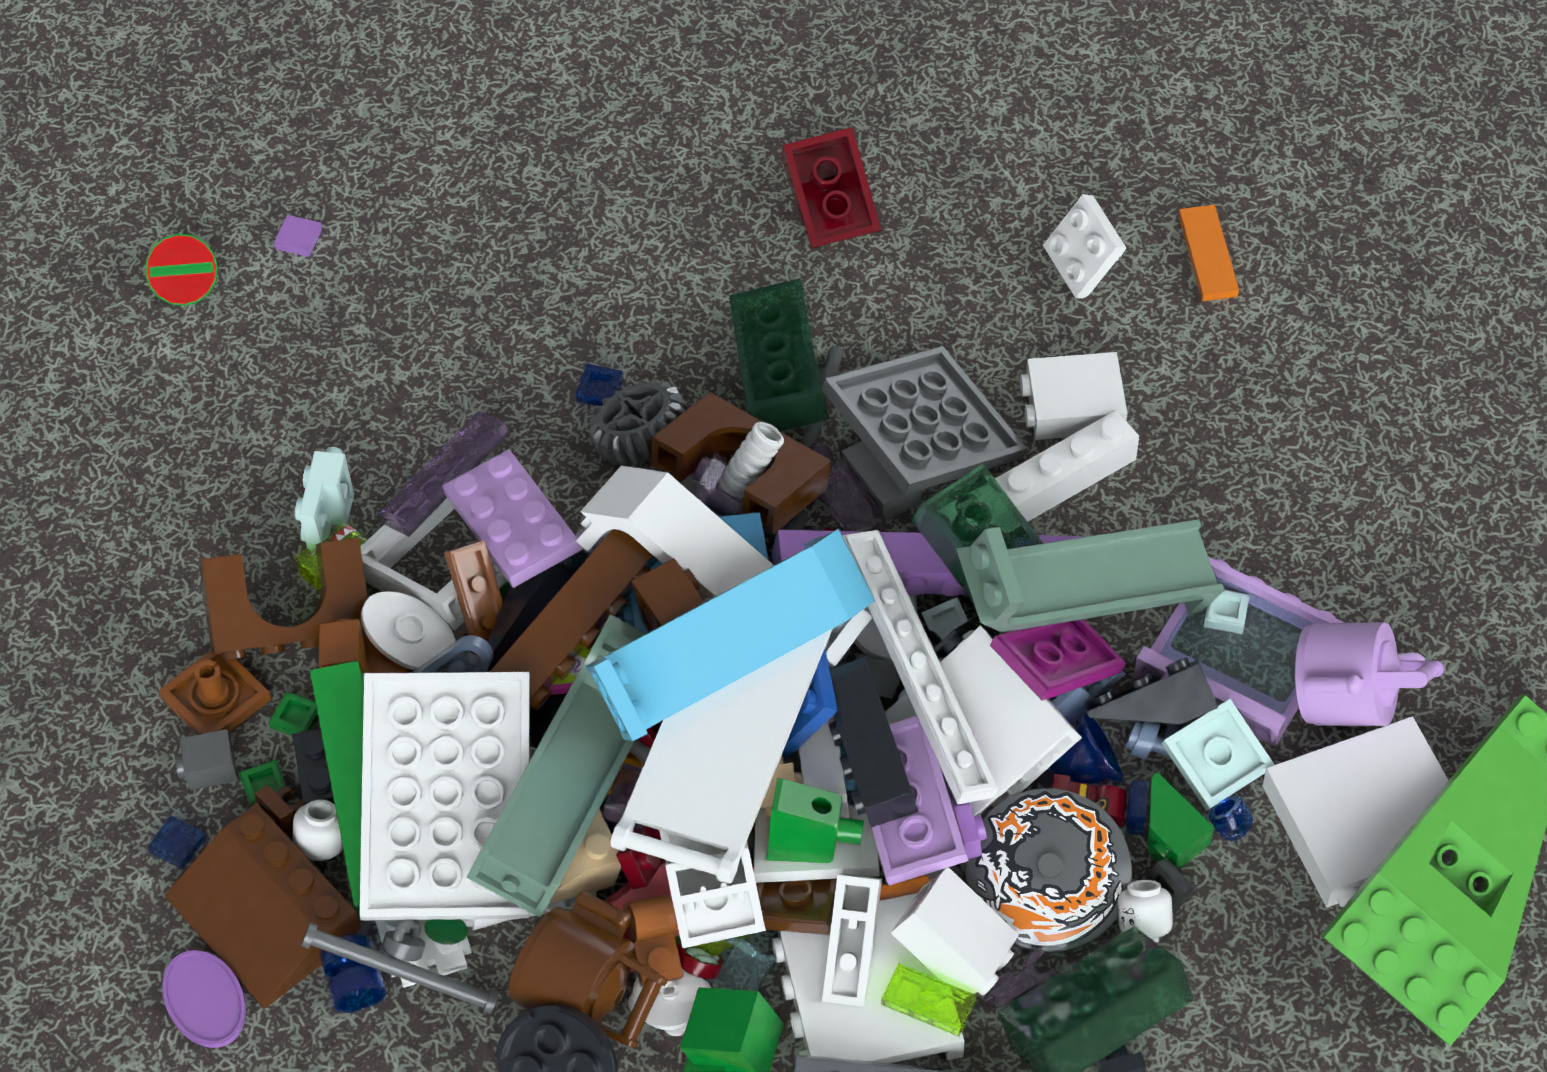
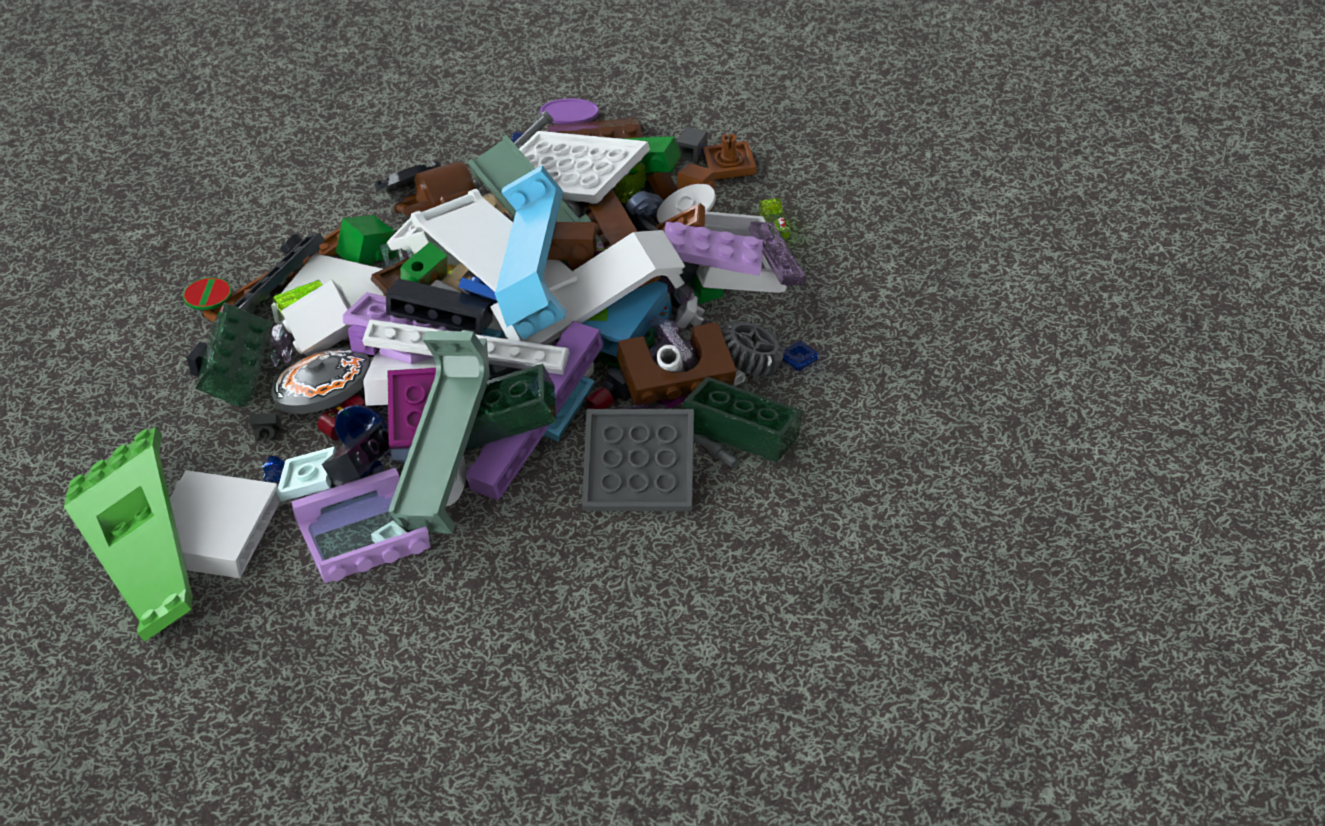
camera: 125 degrees right, 15 degrees down
(176, 842) = (660, 128): clear blue tile -> none
(181, 269) = (1028, 229): red piece -> none
(236, 625) = (751, 159): reddish brown arch -> none
(298, 235) = (1024, 286): medium lavender tile -> none
(326, 496) = (808, 217): light aqua plate -> none
(830, 187) = (866, 512): dark red slope -> none
(851, 939) = (360, 279): white slope -> none
(1070, 465) = (550, 493): white brick -> none
(1071, 393) = (596, 545): white brick -> none
(1084, 246) = (699, 600): white plate -> none
(1136, 807) = (318, 434): clear blue tile -> none
(1146, 908) = (260, 400): white head -> none
(1174, 825) = (294, 440): green slope -> none
(1208, 253) = (649, 679): orange tile -> none
(1354, 673) = (278, 536): lavender piece -> none

